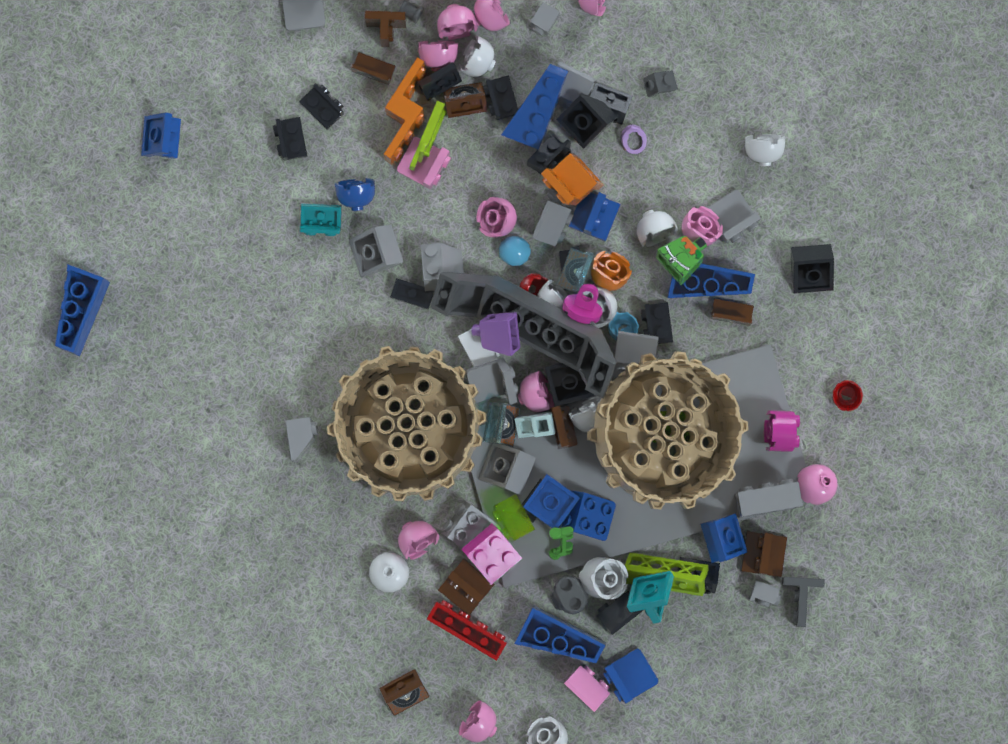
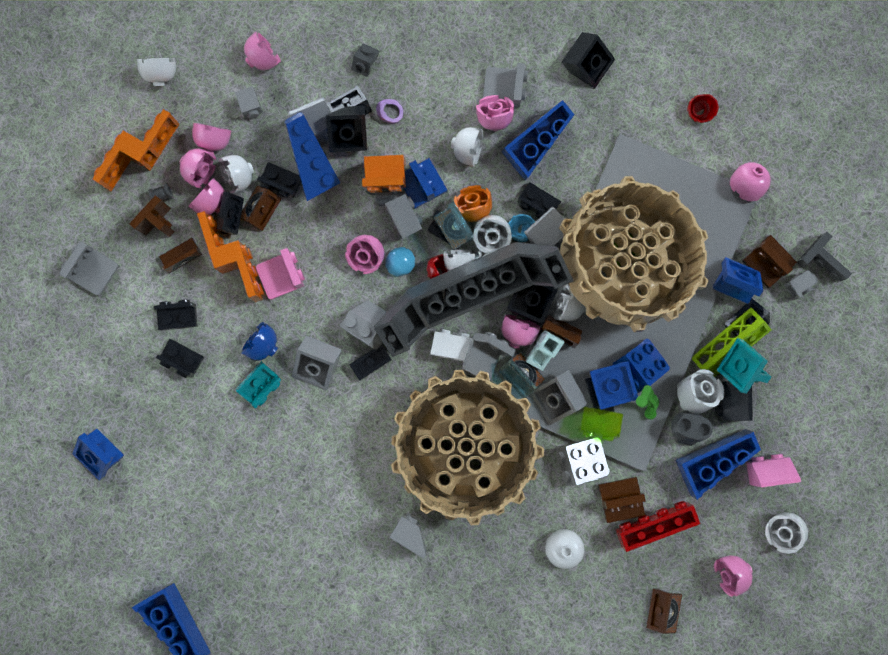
camera: 50 degrees left, 0 degrees up
(415, 538) = (556, 508): bright pink cylinder -> none
(429, 134) = (263, 253): lime piece -> none
(491, 553) = (615, 461): brick -> none
(499, 333) = (454, 321): medium lavender torso -> none
(549, 154) = (351, 179): black bracket -> none
(583, 308) = (487, 243): dark pink tile -> none
(630, 676) = (785, 431): blue bracket -> none
(681, 257) = (508, 141): bright green torso -> none
(732, 312) = (574, 142): reddish brown panel -> none
(765, 148) = (475, 22): white cylinder -> none
(768, 498) = (738, 223): light grey brick -> none
(781, 431) = (694, 174): dark pink brick -> none

